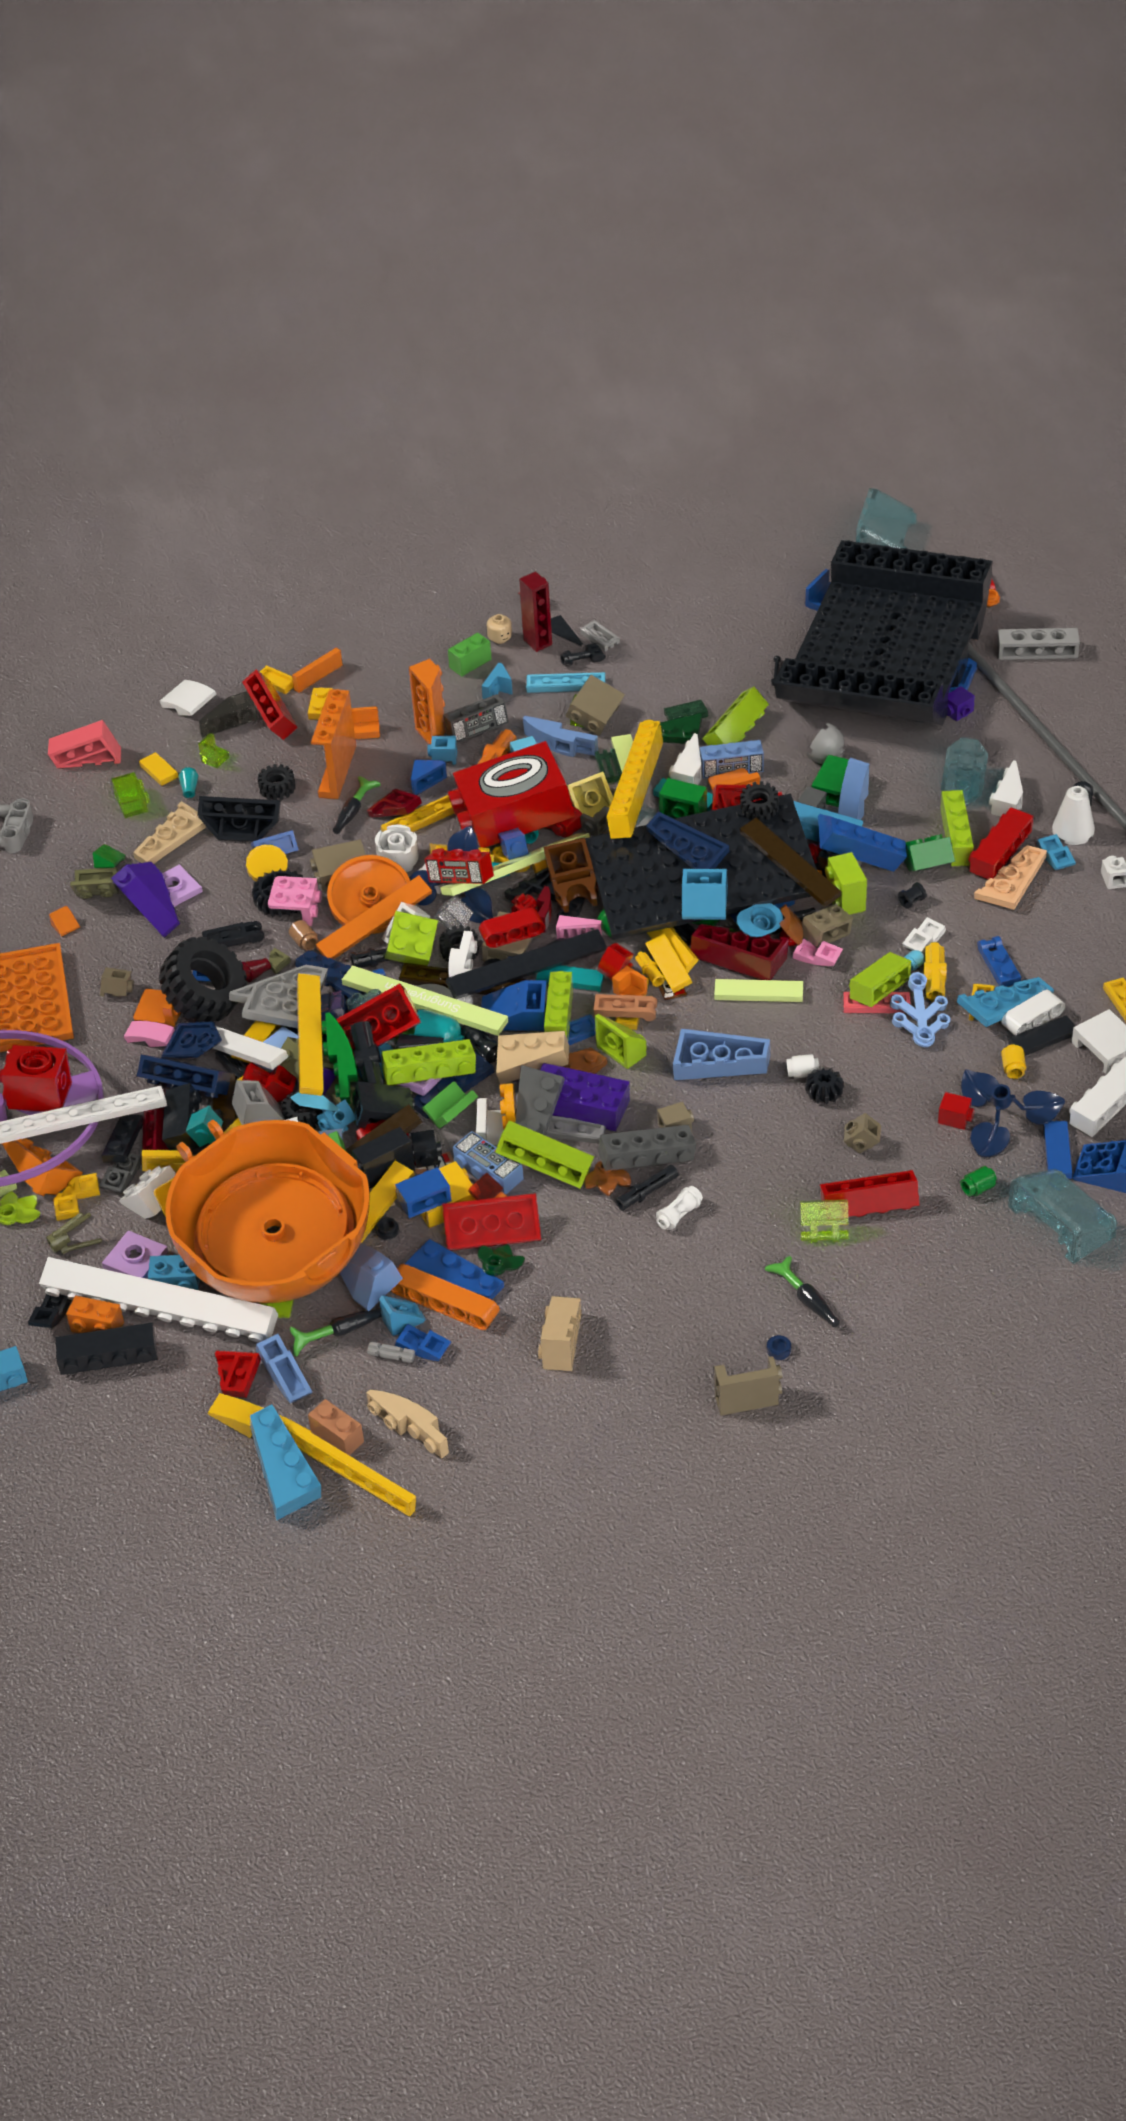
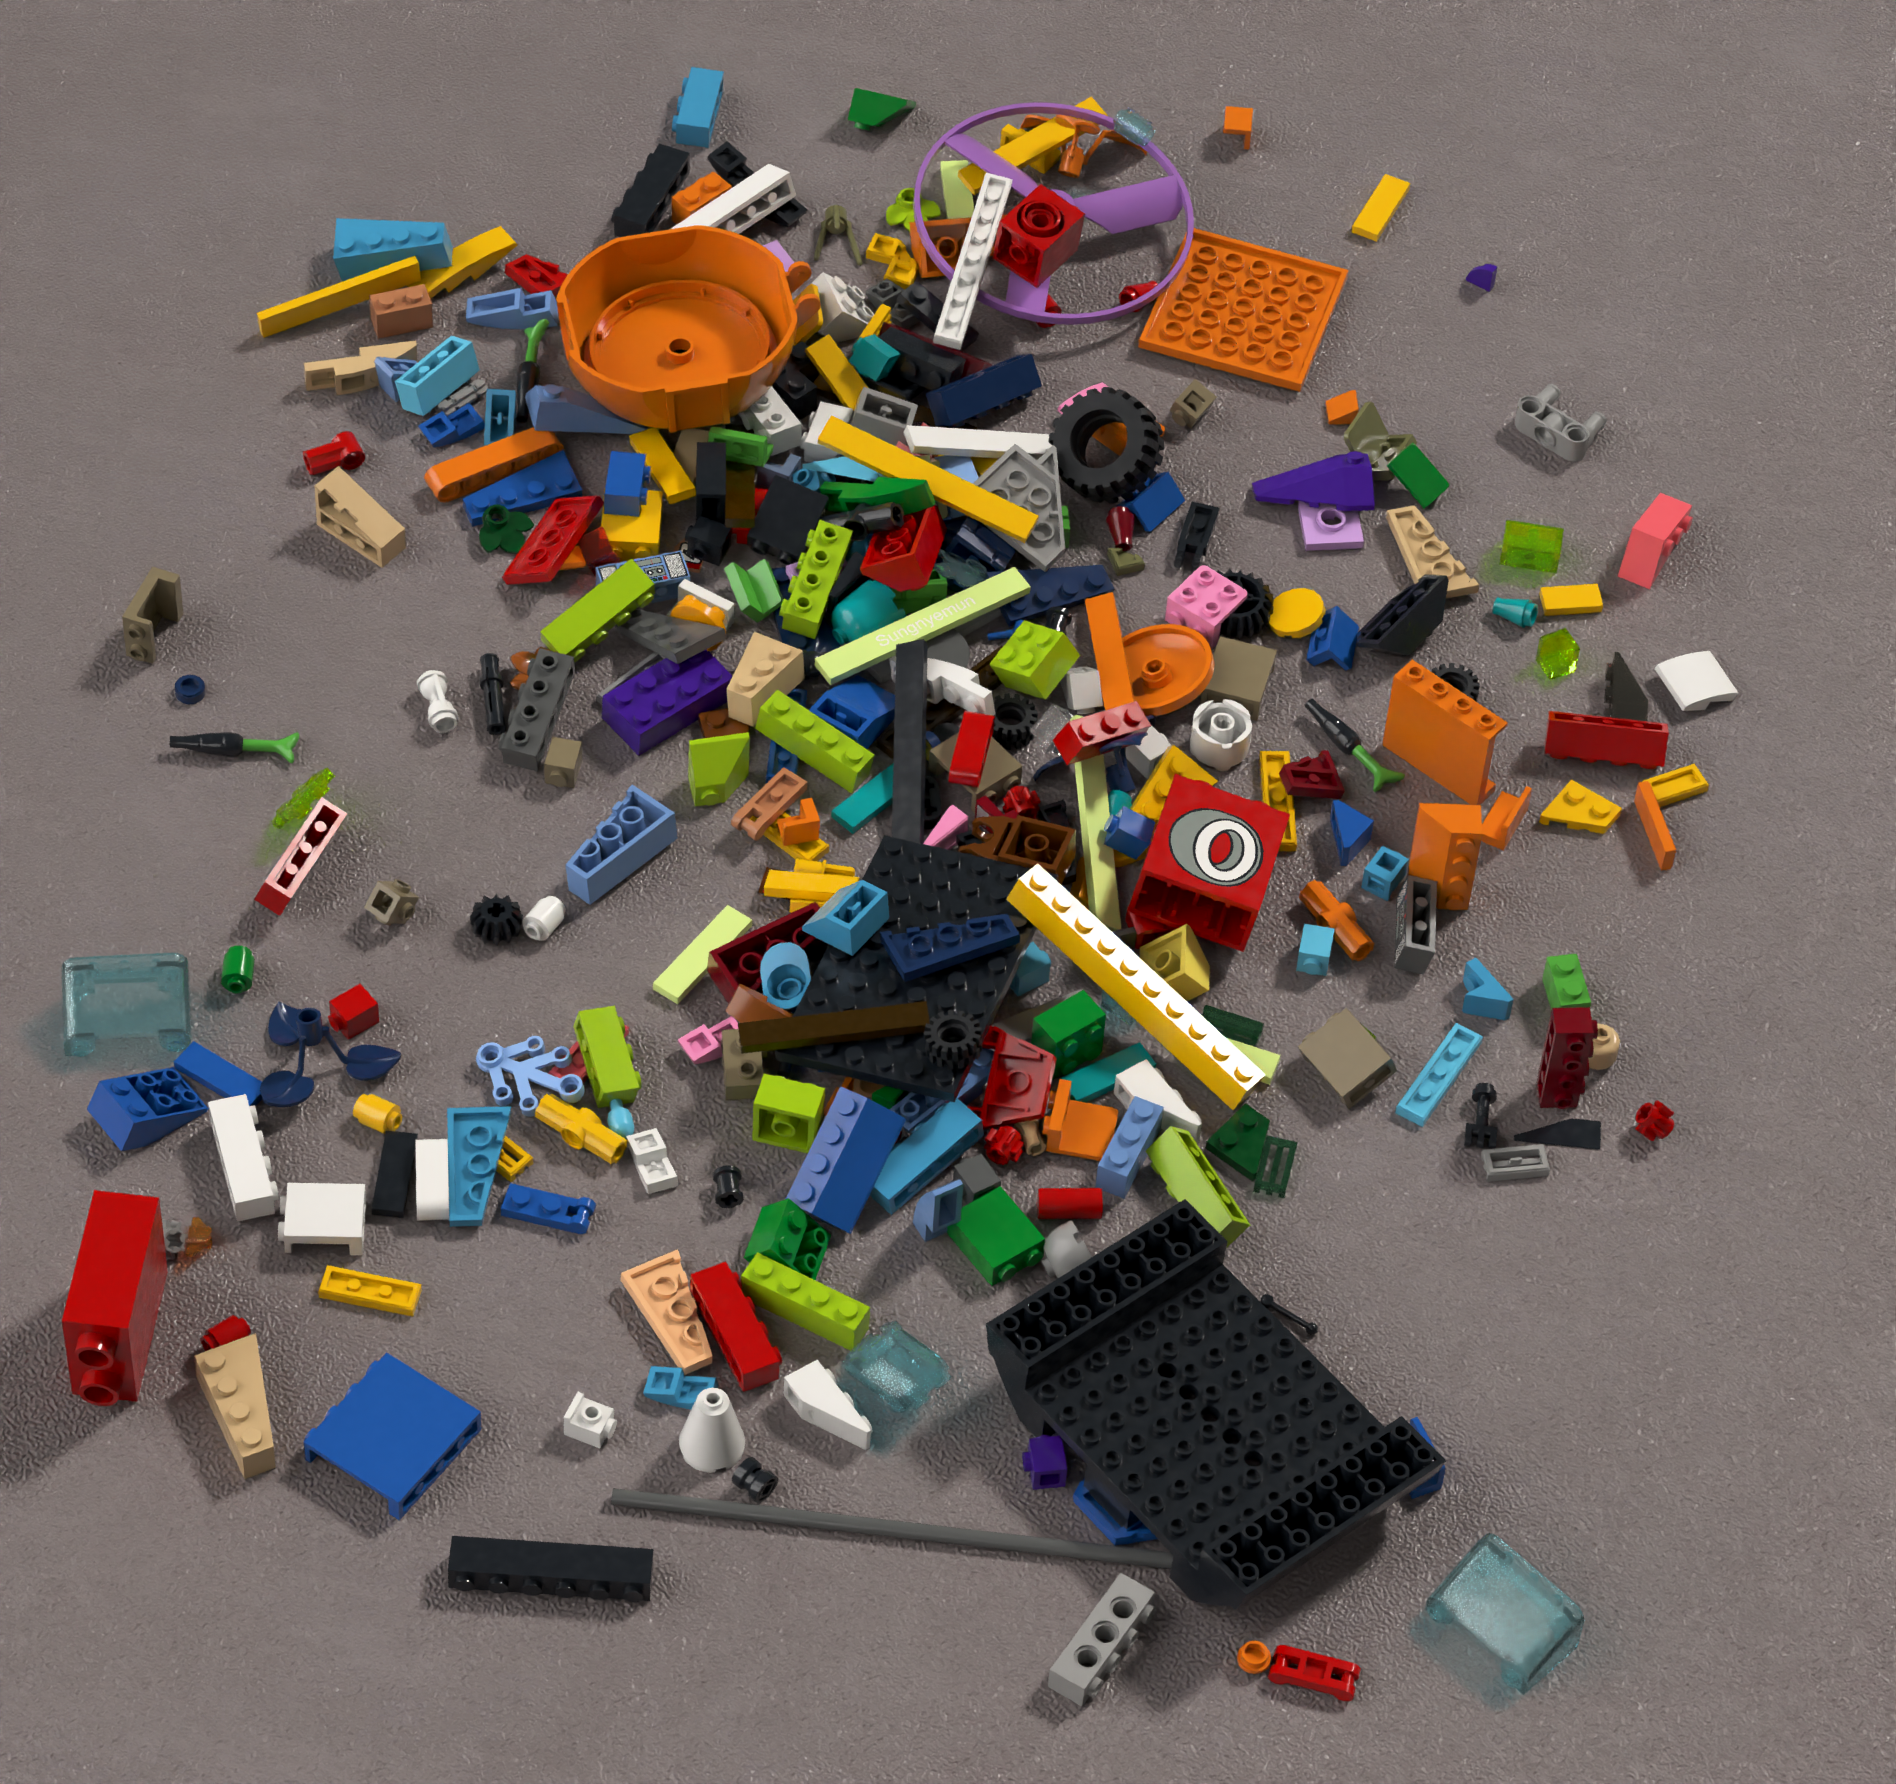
camera: 115 degrees right, 5 degrees up
(192, 1040) = (1030, 420): dark blue tile -> none
(303, 935) = (1142, 592): medium nougat brick -> none
(388, 1365) = (437, 375): none -> medium azure brick
(405, 1386) = (390, 370): none -> medium blue slope
(500, 1385) = (342, 451): none -> red piece
(558, 739) = (1325, 993): medium blue slope -> none
(614, 960) = (842, 826): red brick -> none
(790, 767) = (1069, 1203): none -> red brick

